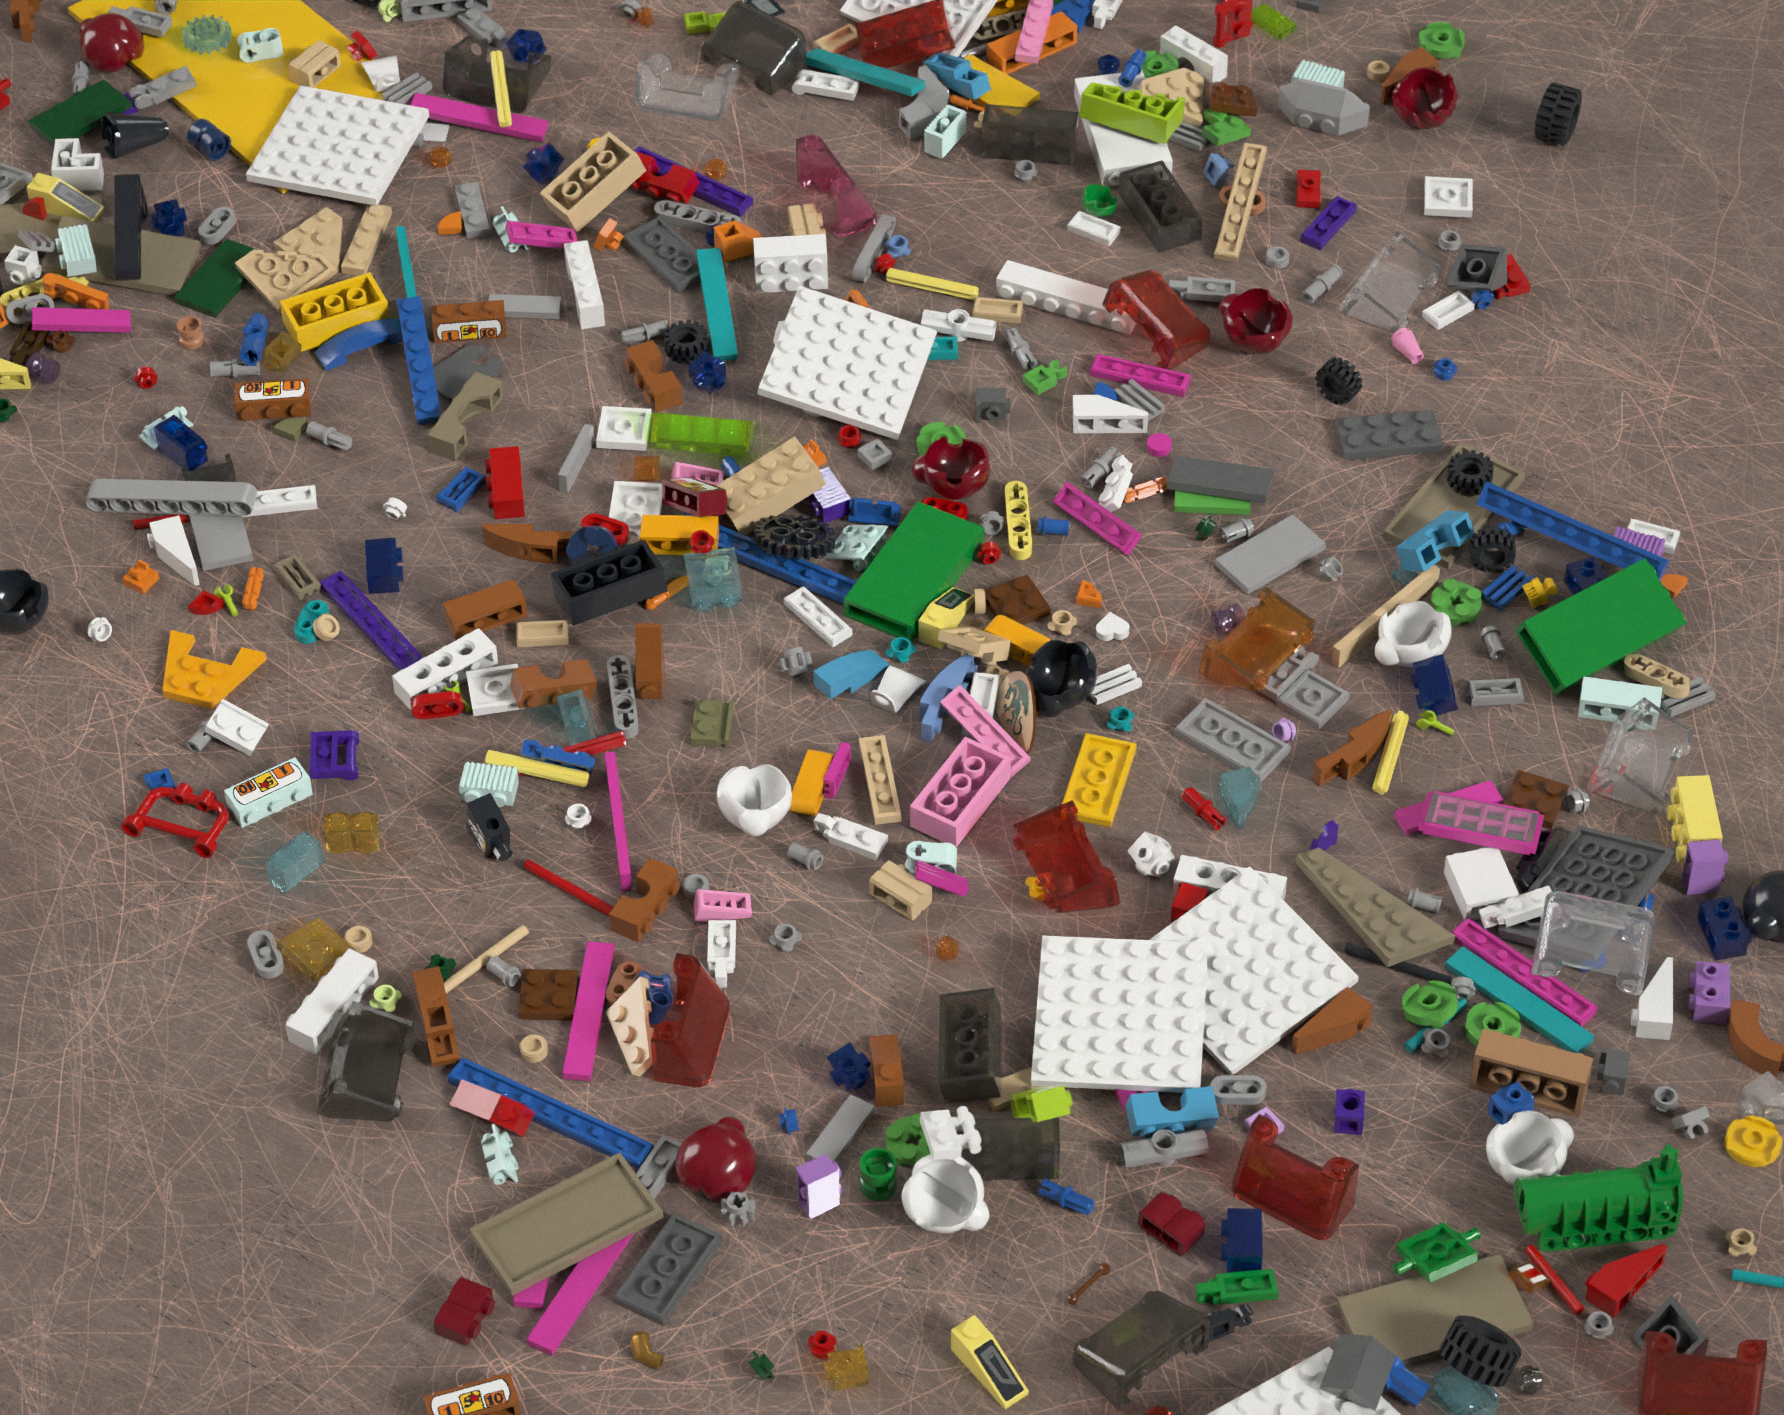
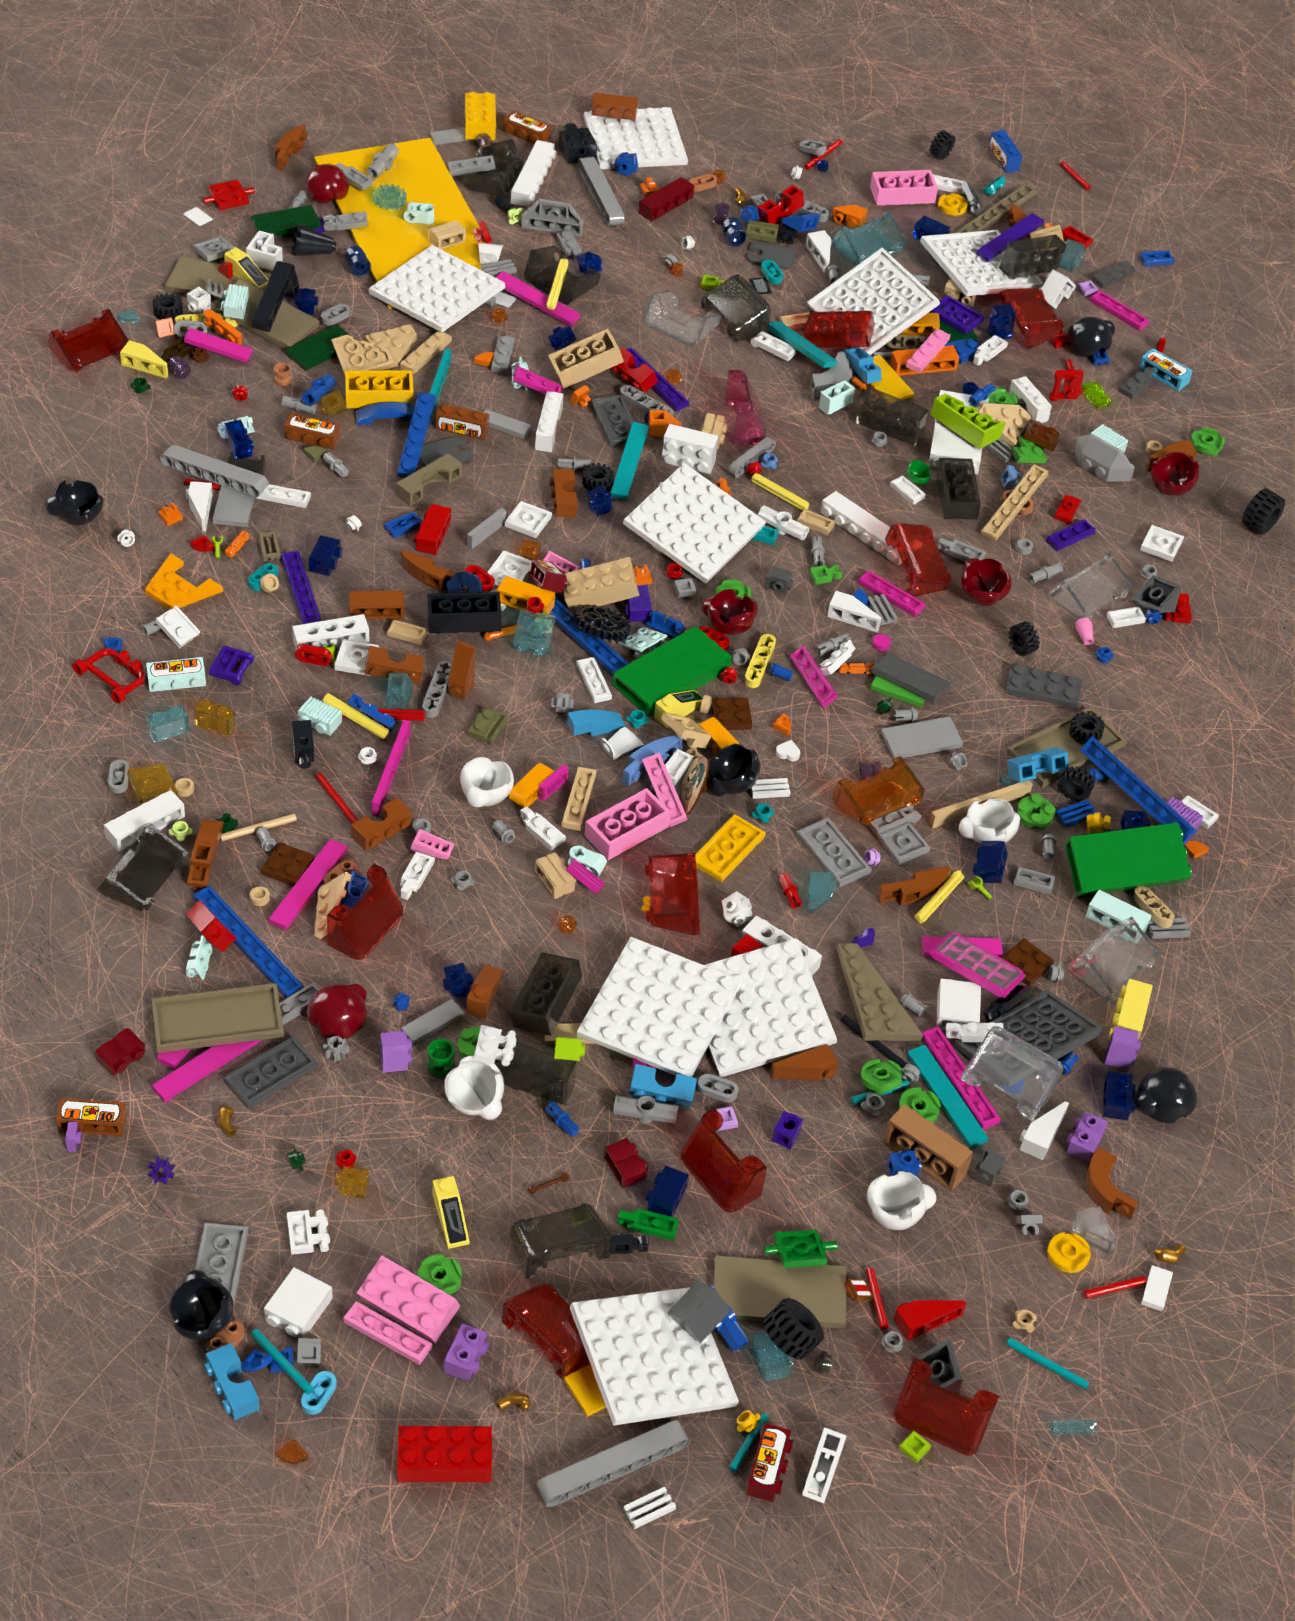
camera: 15 degrees right, 0 degrees up
(703, 432) = (577, 537): clear neon green slope -> none
(1062, 622) = (755, 736): tan plate -> none
(1603, 1205) = (932, 1258): green piece -> none

